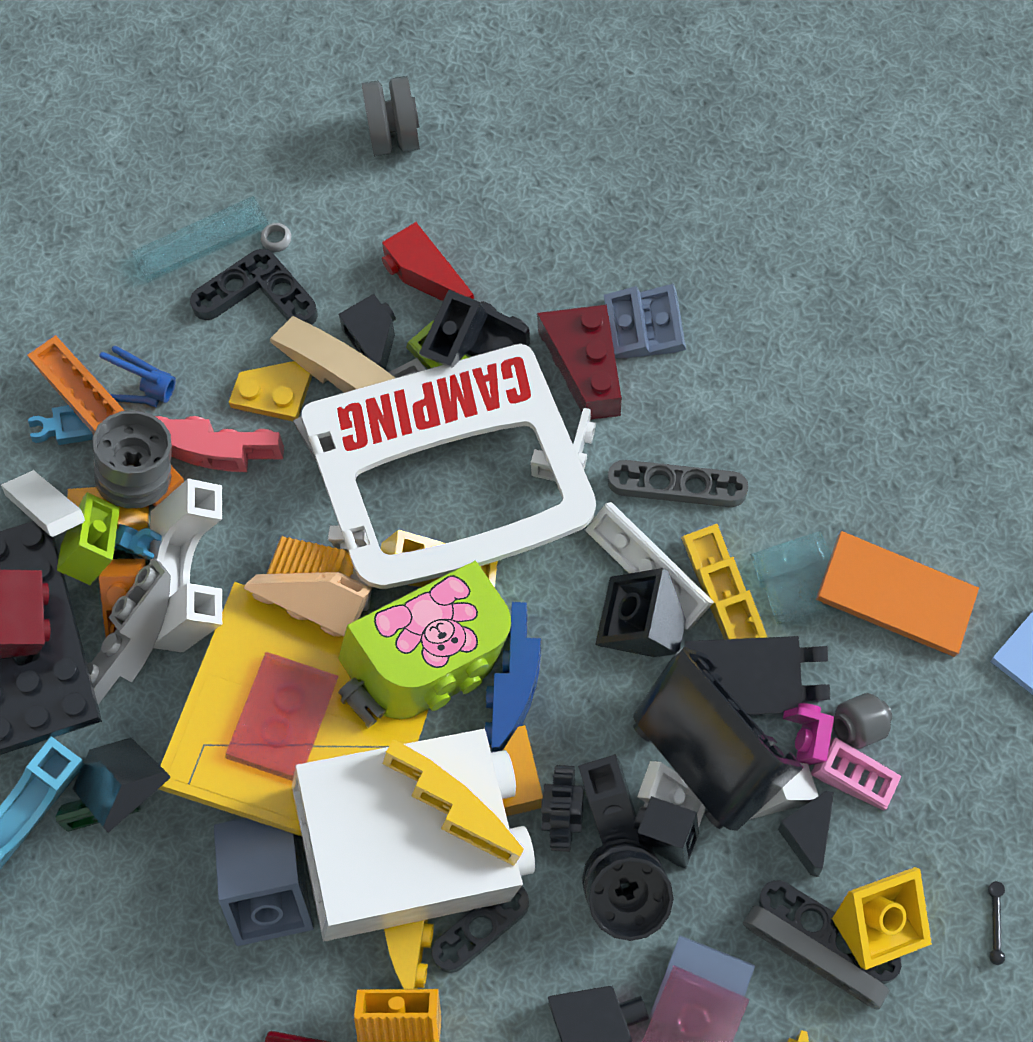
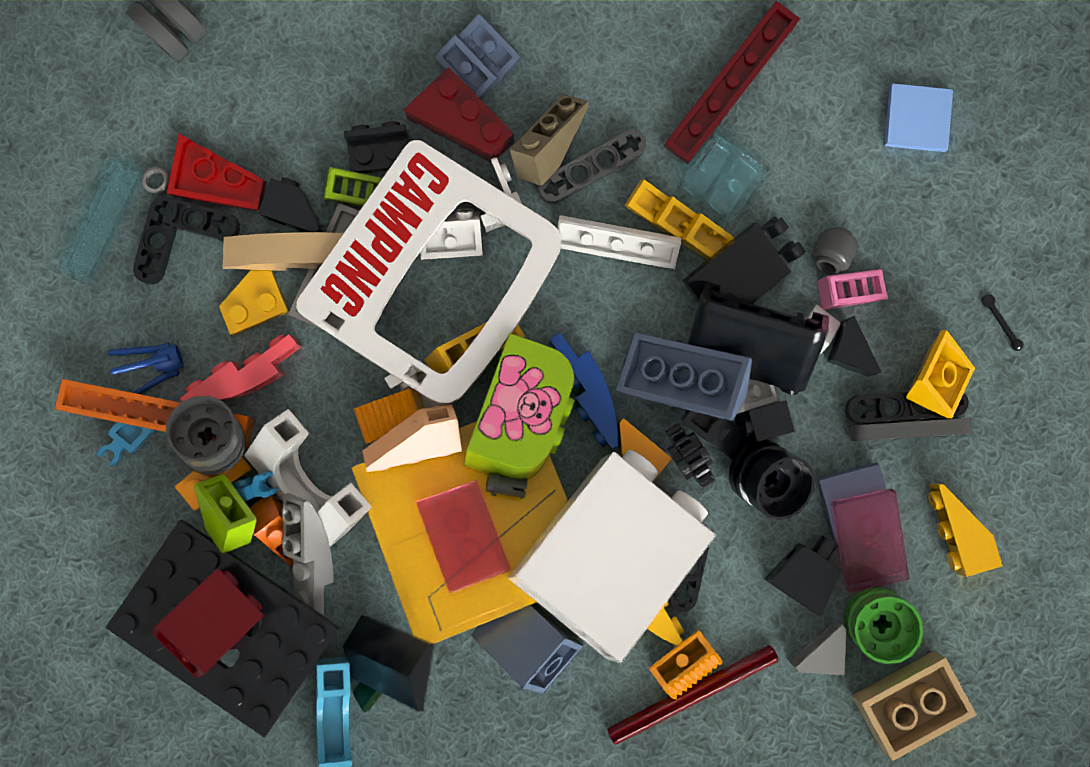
camera: 45 degrees left, 20 degrees up
(43, 503) = (167, 512): white tile -> none
(323, 264) = (212, 179): none -> red wing
(421, 264) = (286, 128): red slope -> none
(454, 329) = (356, 169): black slope -> none
(466, 814) = (647, 522): yellow slope -> none
(497, 455) = (456, 237): none -> white bracket
(616, 724) = (685, 376): none -> sand blue slope
(642, 614) = (639, 281): black slope -> none
(644, 432) = (547, 141): none -> dark tan slope
(814, 736) = (811, 283): dark pink bracket -> none
(872, 497) = (731, 82): none -> dark red plate
(897, 594) = (796, 142): orange tile -> none

